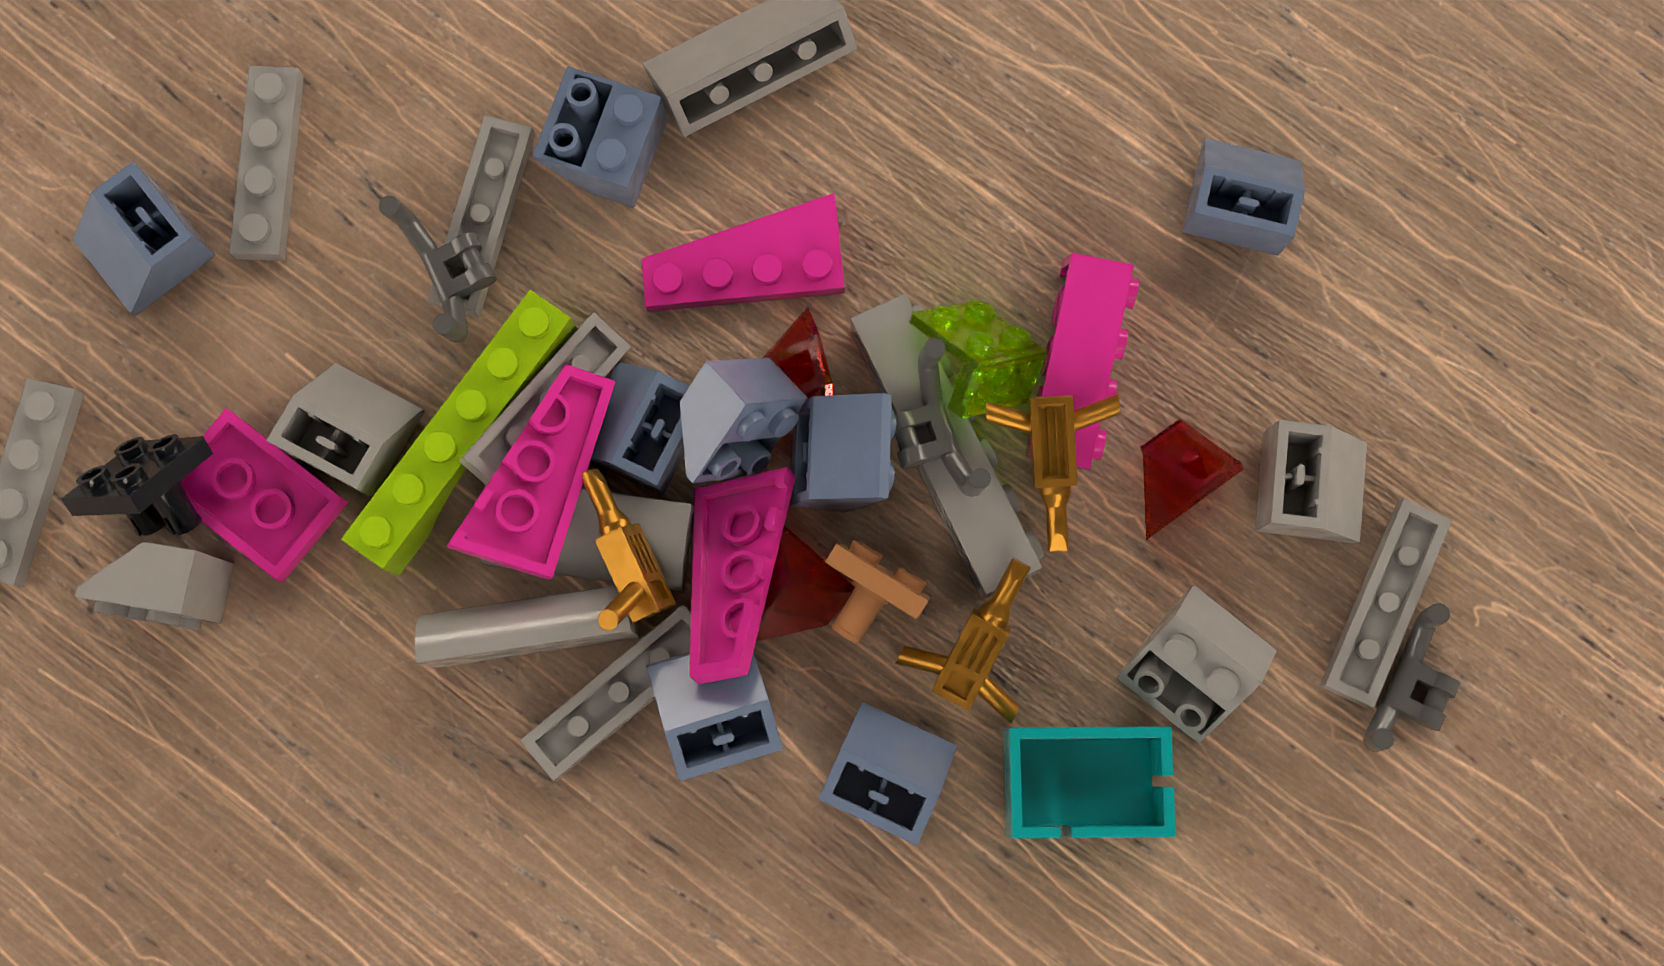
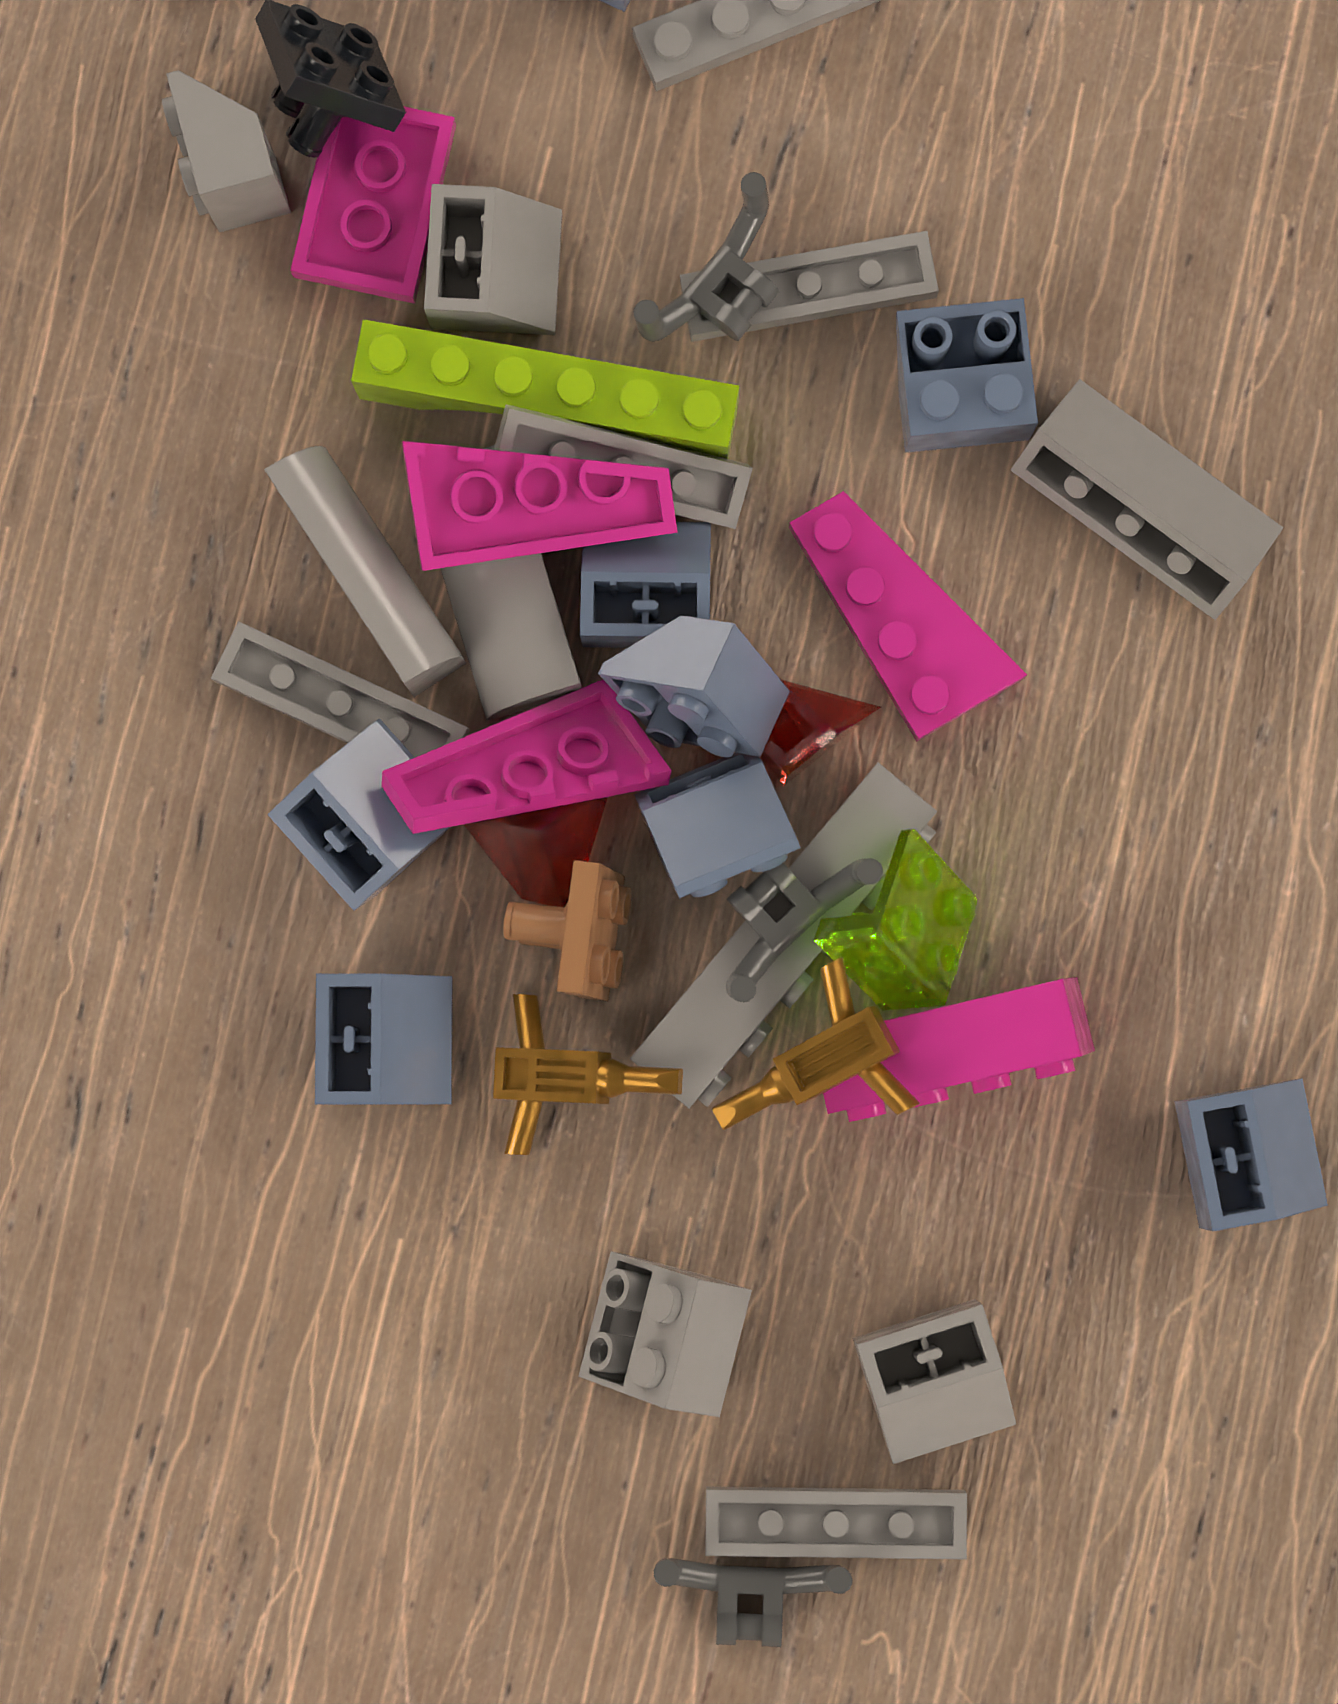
camera: 70 degrees right, 5 degrees up
(628, 559) = (481, 644): pearl gold piece -> none
(1088, 782) = (475, 1266): teal piece -> none
(1180, 472) = (878, 1221): clear red slope -> none

